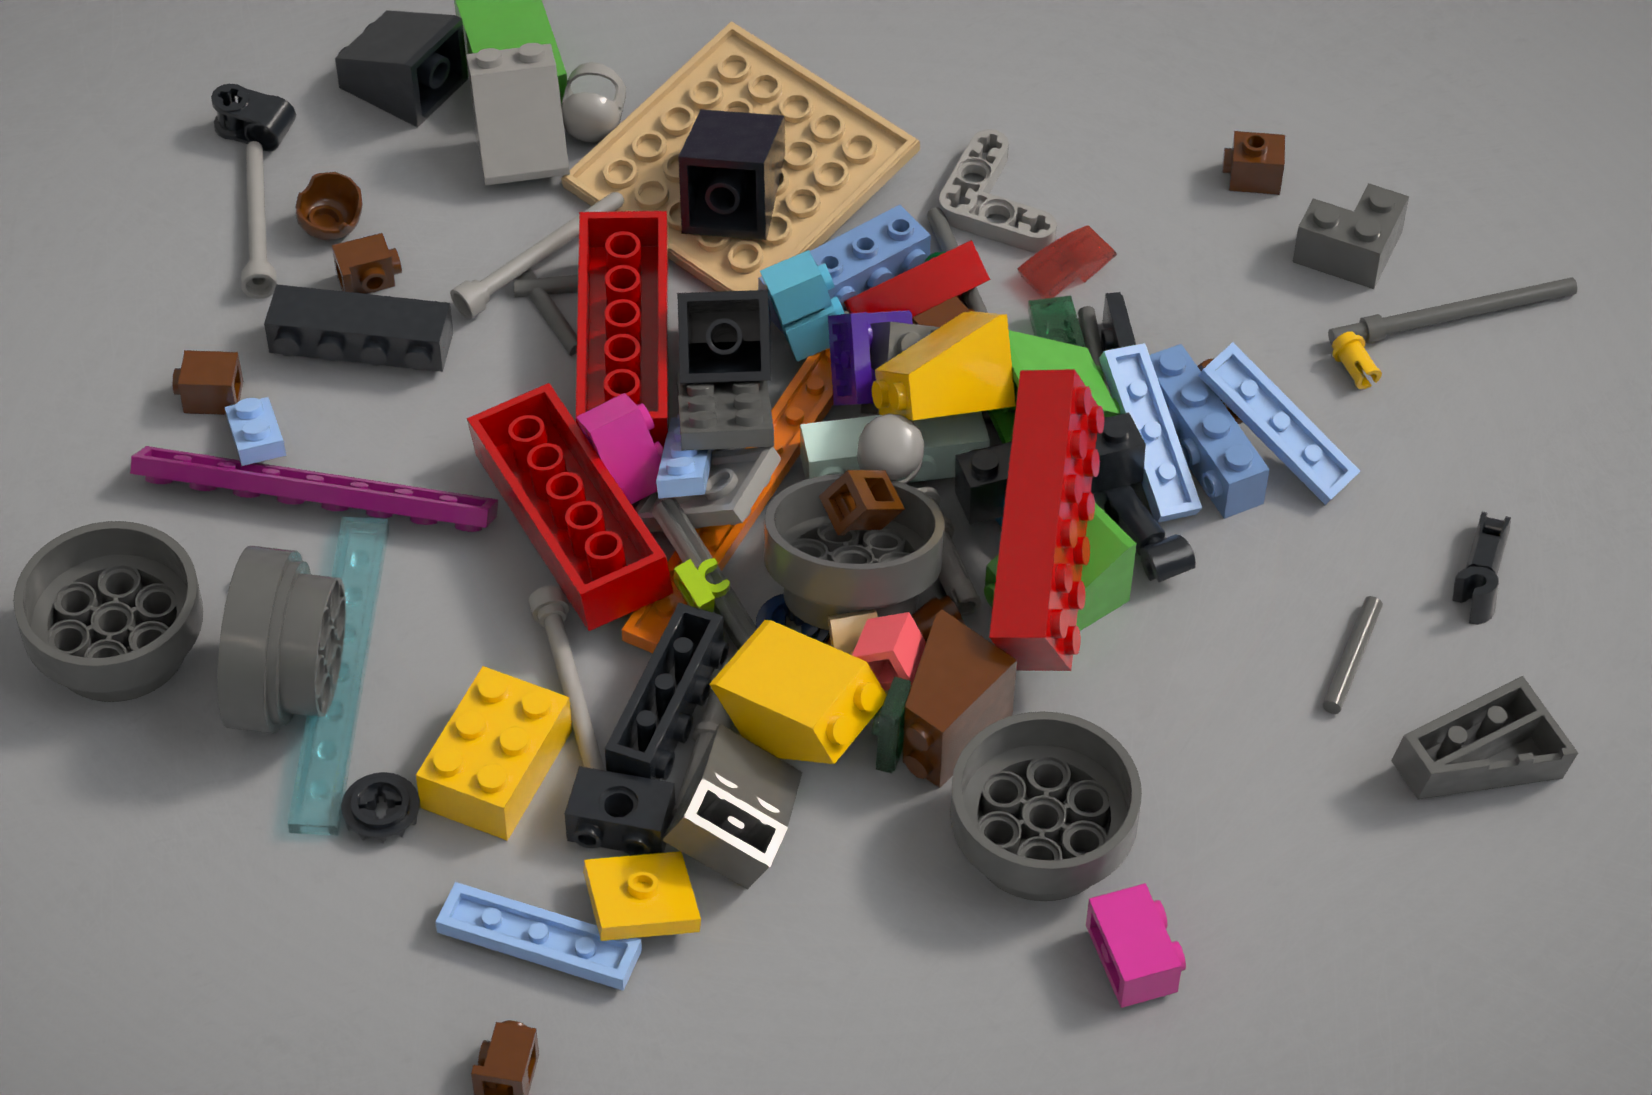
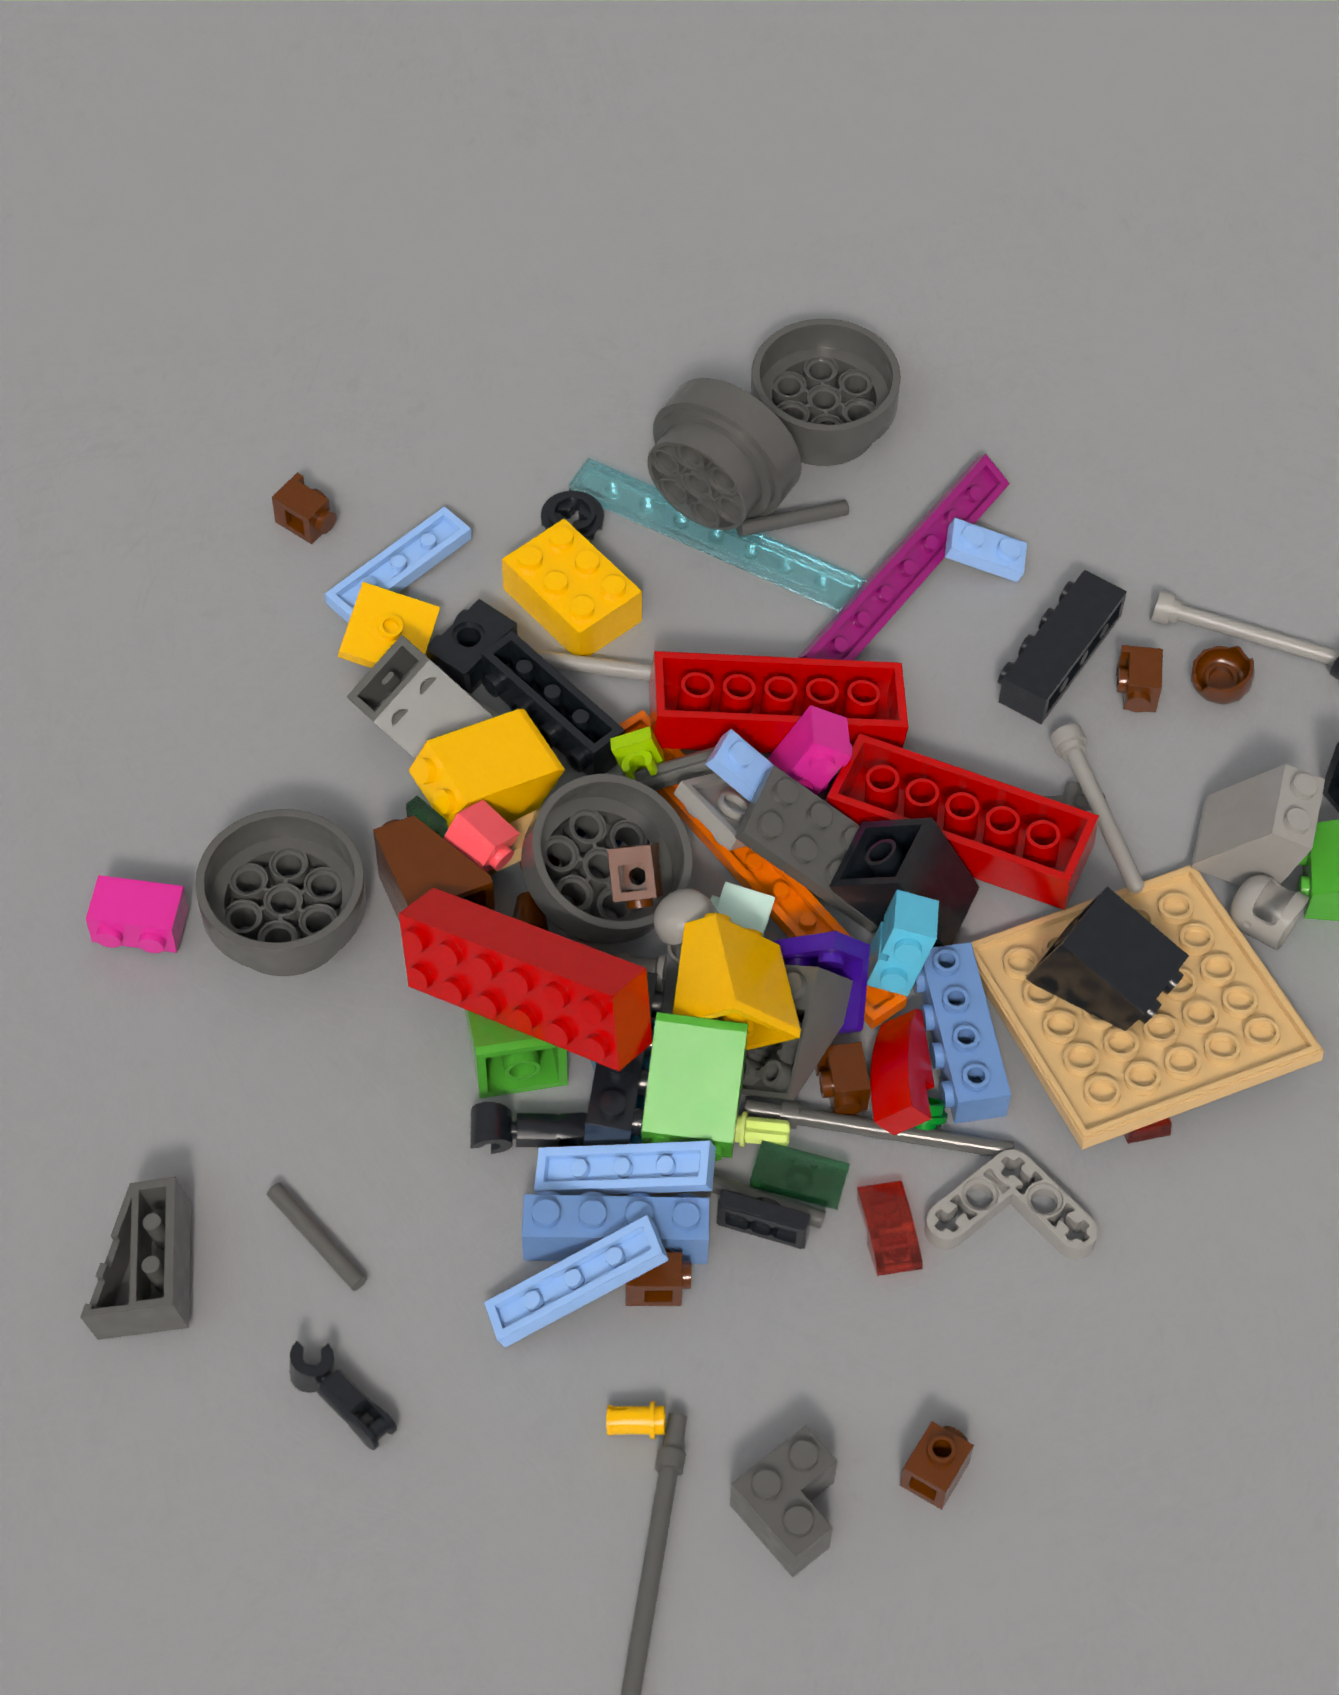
camera: 115 degrees right, 5 degrees up
(208, 381) = (1055, 538): reddish brown brick -> none

